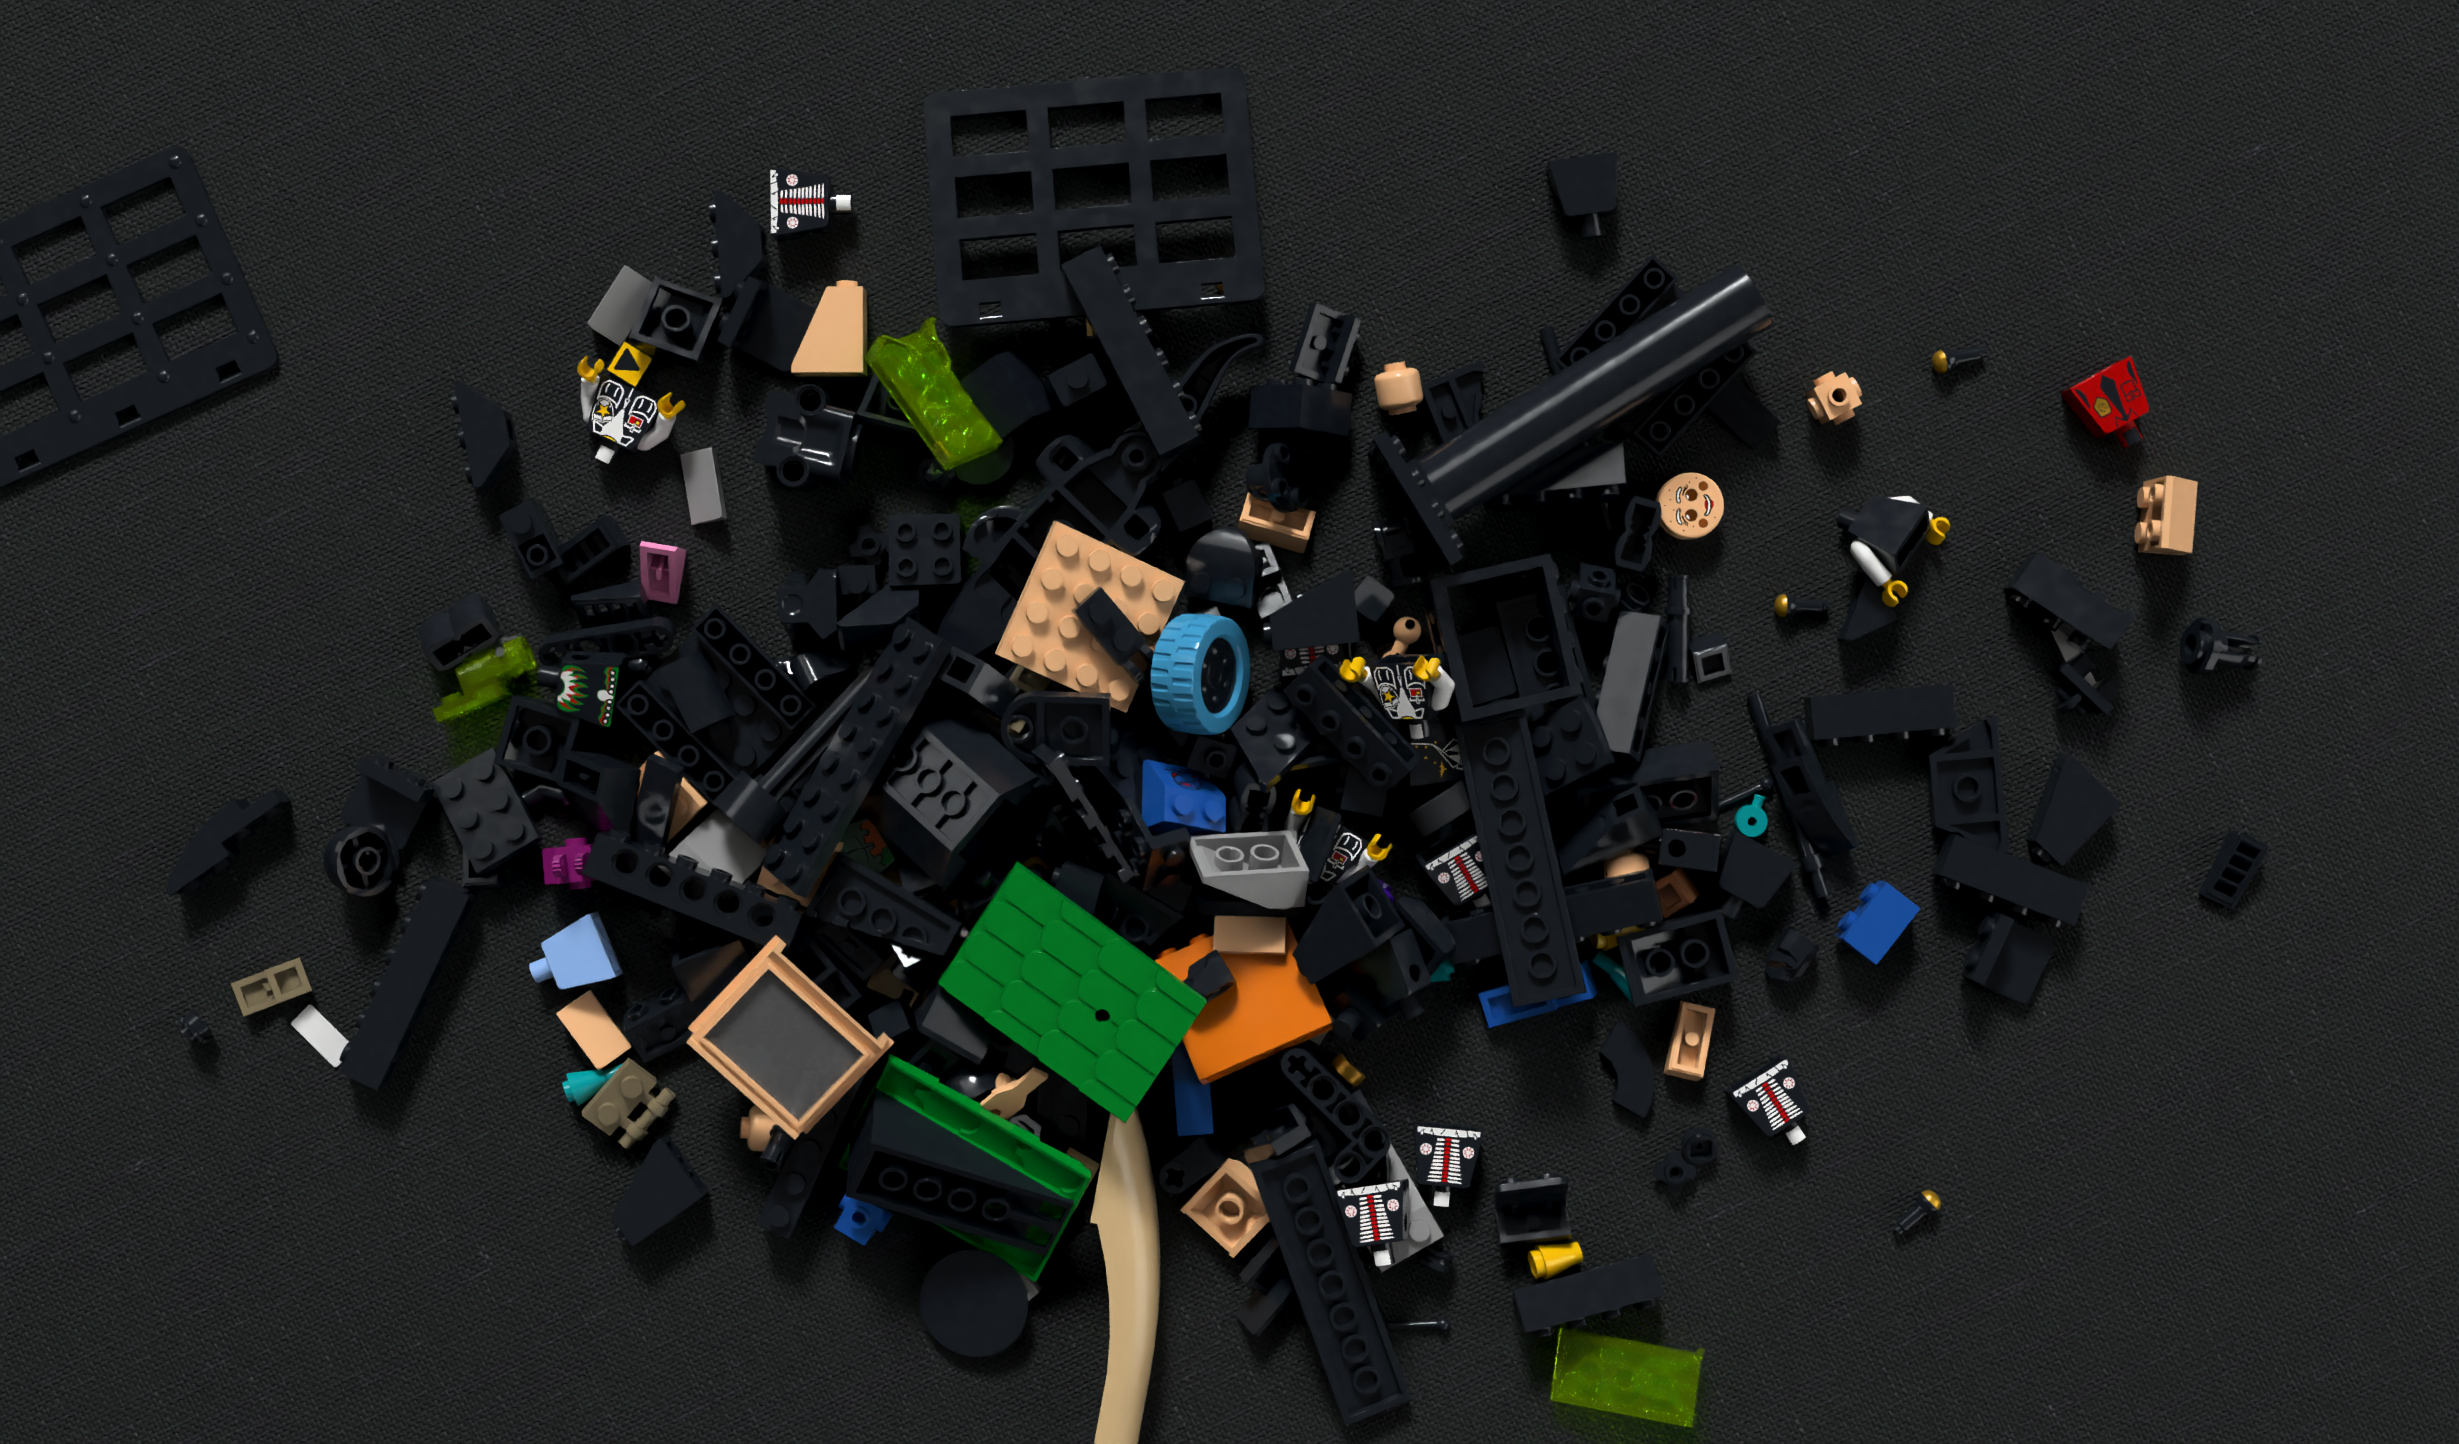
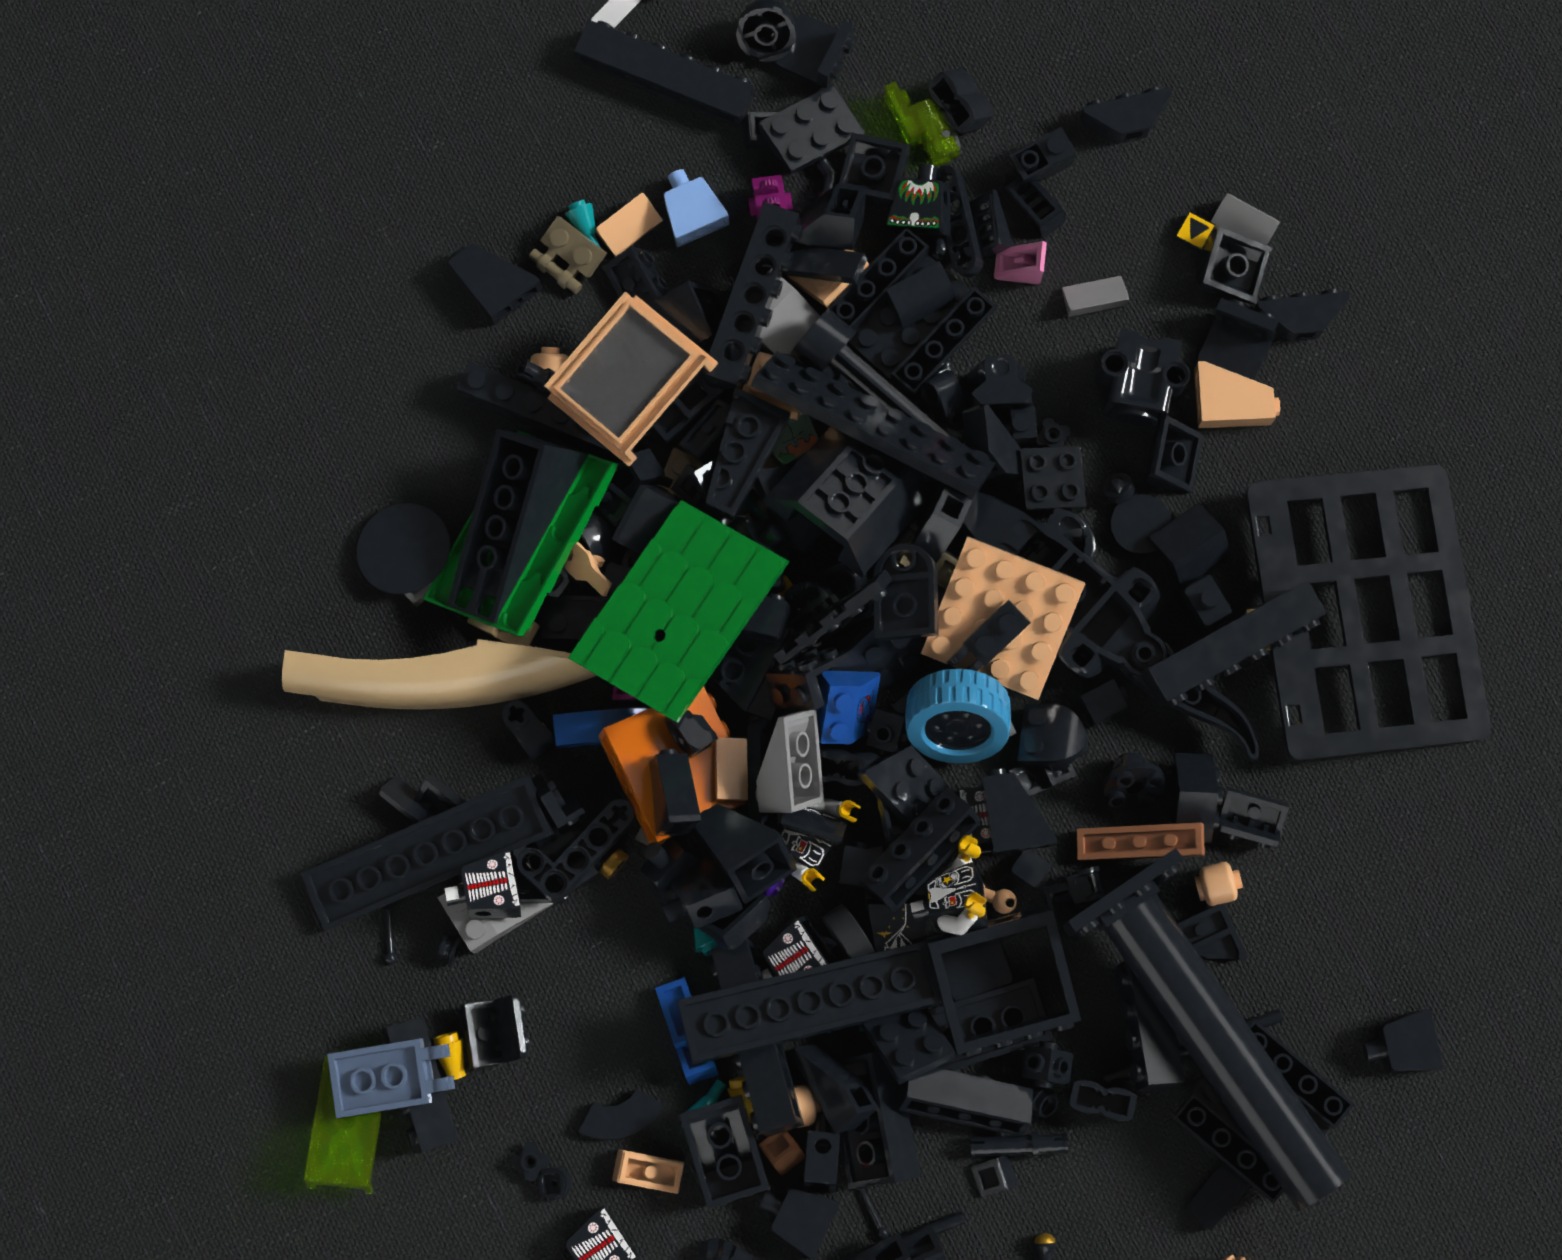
camera: 85 degrees right, 10 degrees down
(623, 414) = (1153, 225): torso -> none
(804, 204) = (1342, 367): torso -> none
(861, 1219) = (474, 450): blue brick -> none
(932, 396) = (1185, 479): clear neon green plate -> none
(1229, 1206) = (491, 762): light nougat slope -> none
(1279, 529) = (1087, 789): light nougat slope -> none
(1279, 1003) = (673, 794): none -> black slope
(1349, 473) = (1140, 841): none -> nougat plate
(1445, 1157) = (538, 952): torso -> none
(1581, 1333) = (385, 1077): none -> sand blue tile
(1690, 506) = (1130, 1150): light nougat head -> none
(1757, 813) = (857, 1220): teal piece -> none

